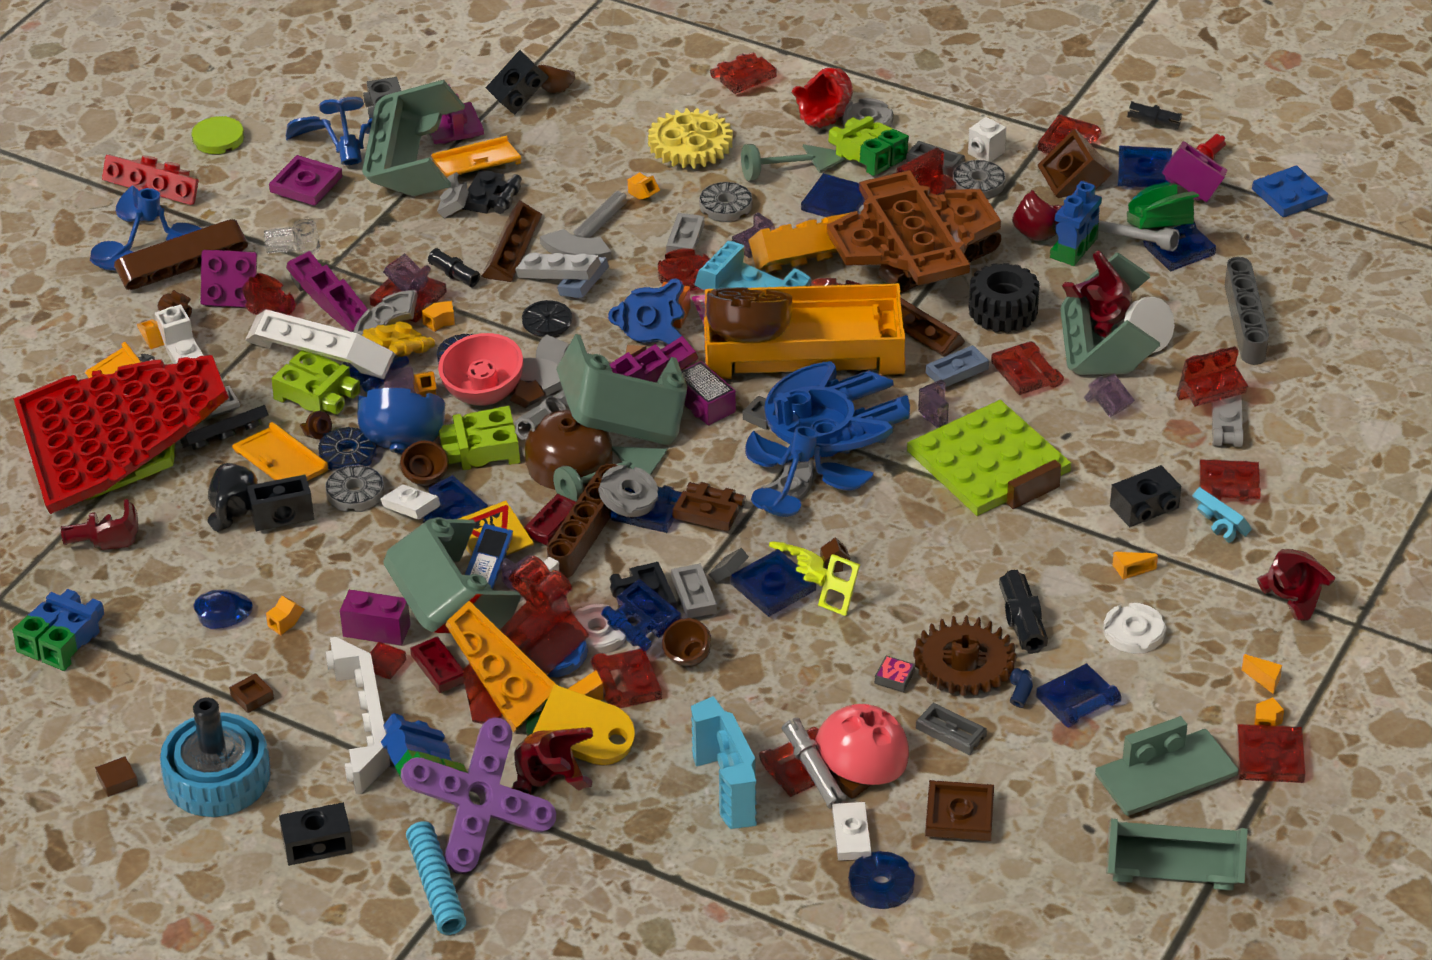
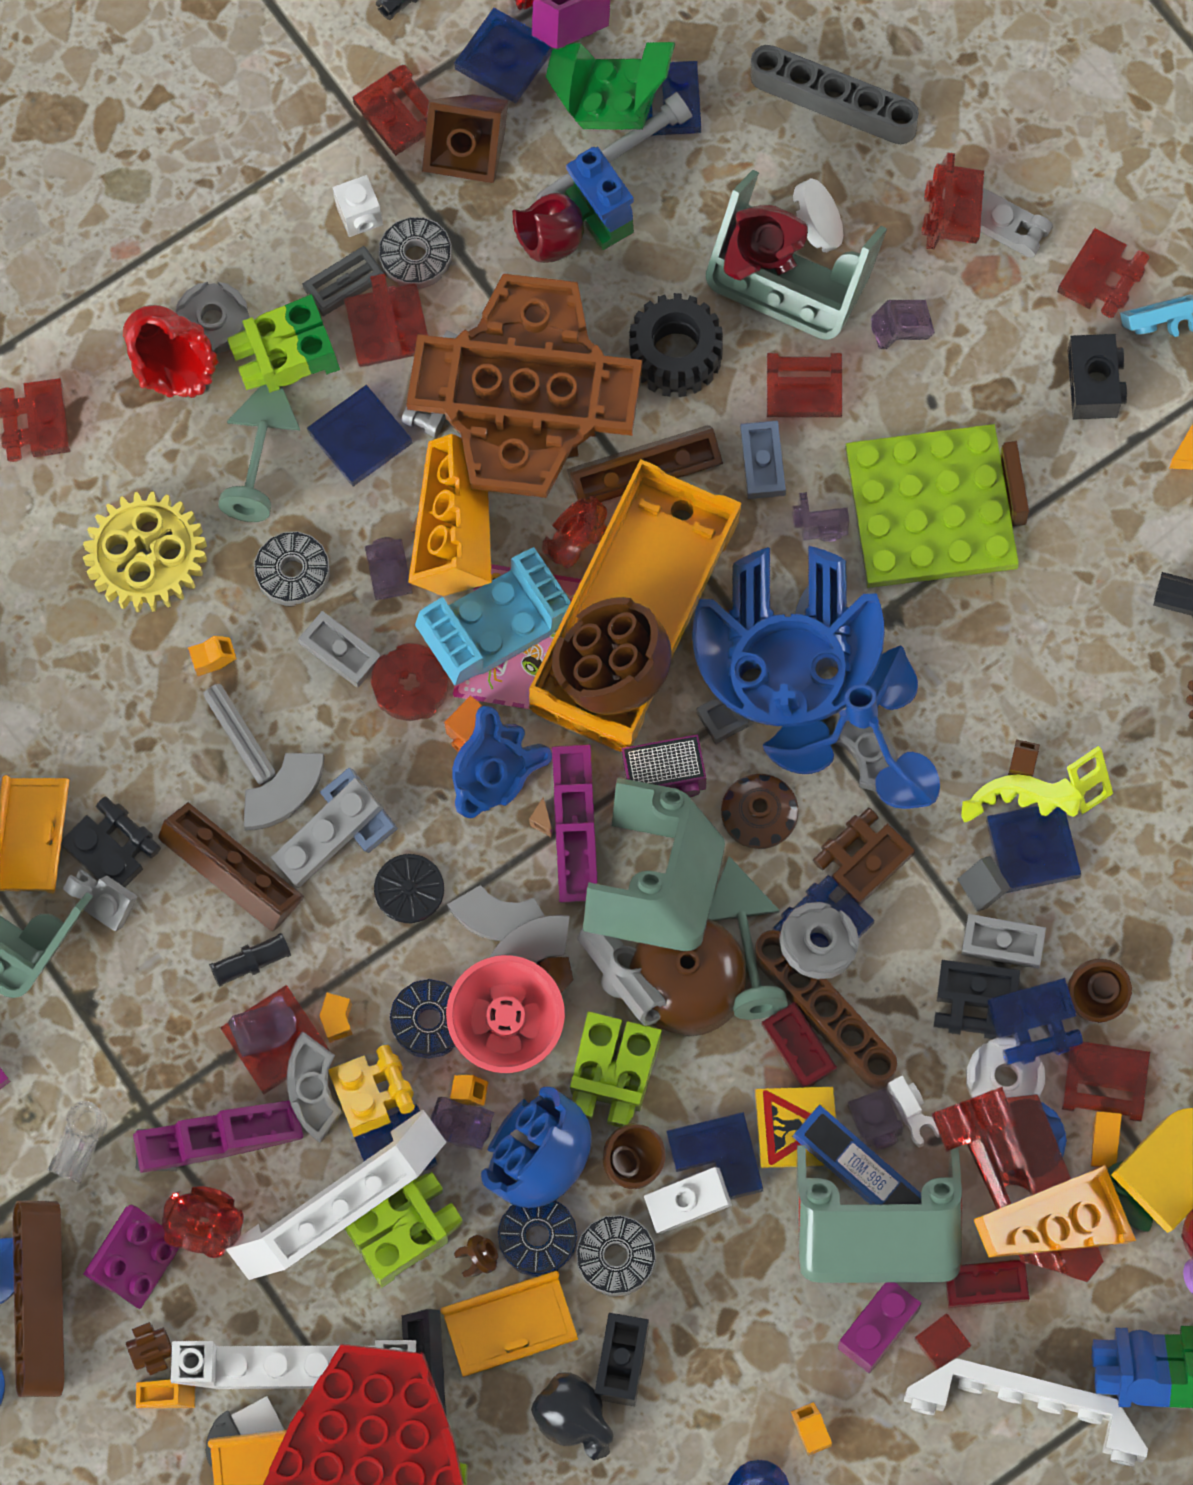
camera: 60 degrees left, 30 degrees up
(709, 453) = (755, 828): none -> reddish brown dish

